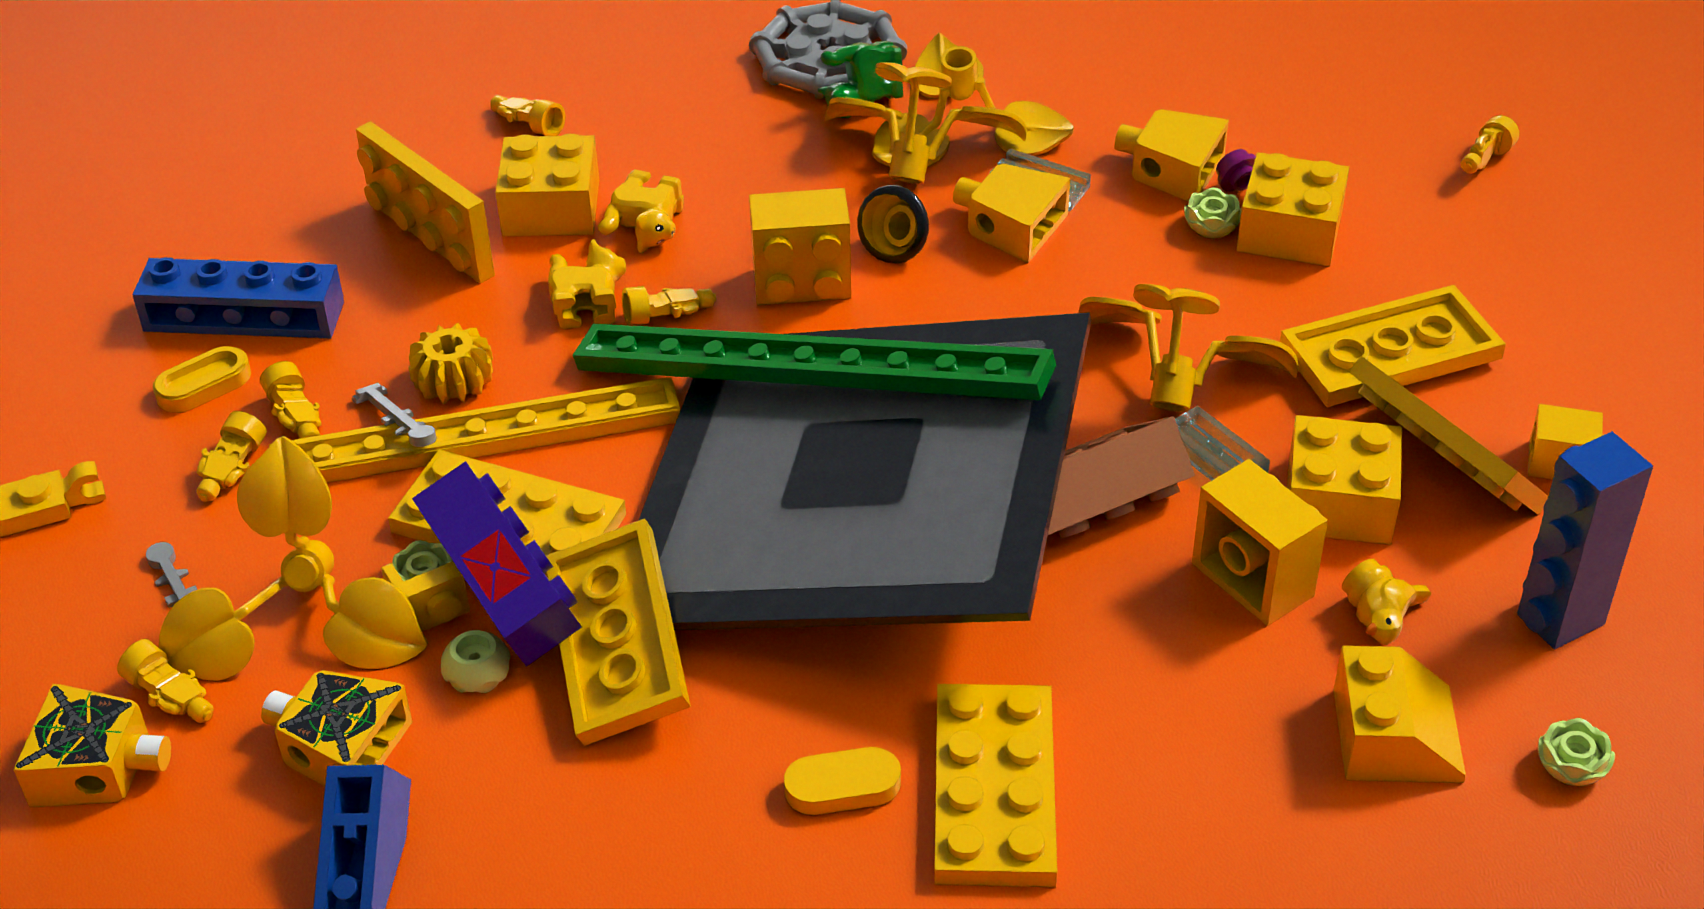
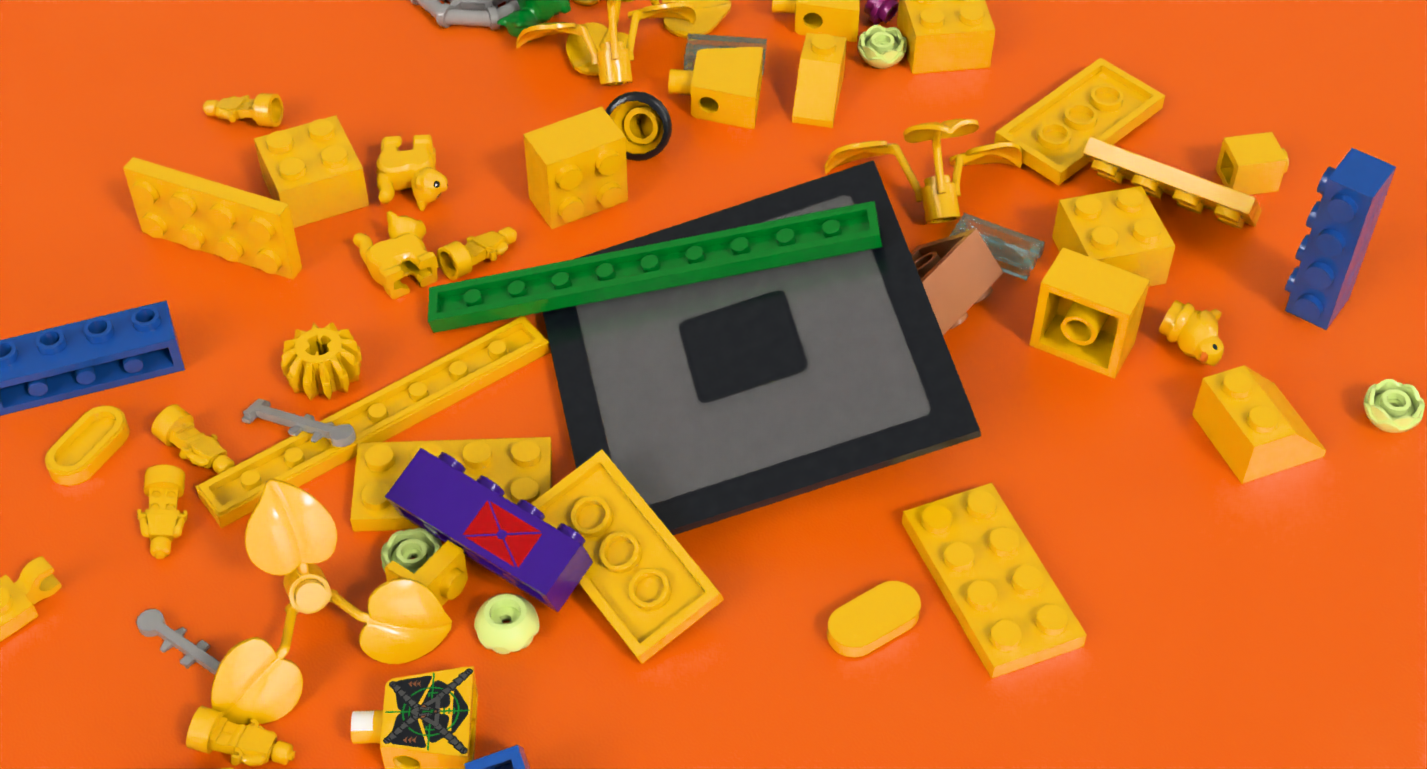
camera: 25 degrees left, 5 degrees up
(1120, 228) = (819, 79): none -> yellow slope

